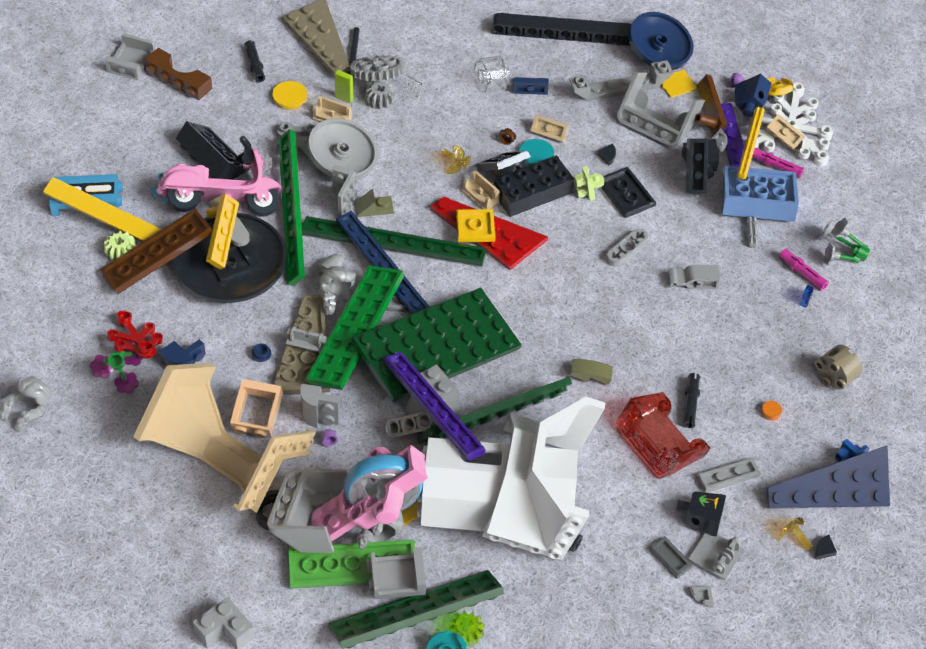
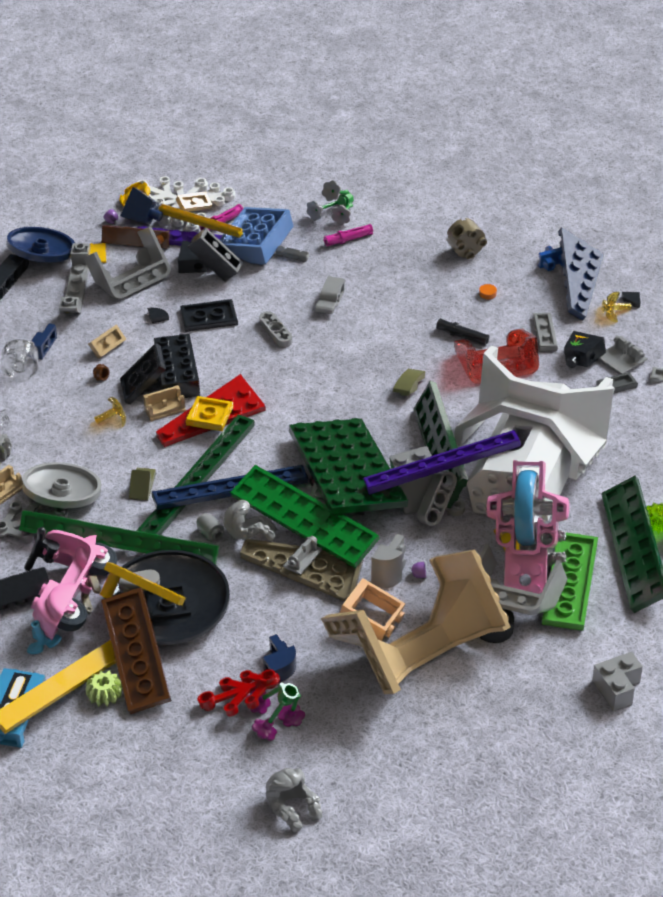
camera: 70 degrees left, 10 degrees down
(261, 352) = (296, 600): dark blue plate -> none
(344, 186) = (116, 488): light grey bracket -> none
(397, 575) = (598, 543): light grey panel -> none
(537, 149) = (127, 357): teal tile -> none
(587, 183) = (195, 327): yellowish green hips -> none
(721, 139) = (177, 242): light grey tile -> none
(806, 296) = (378, 239): clear blue tile -> none

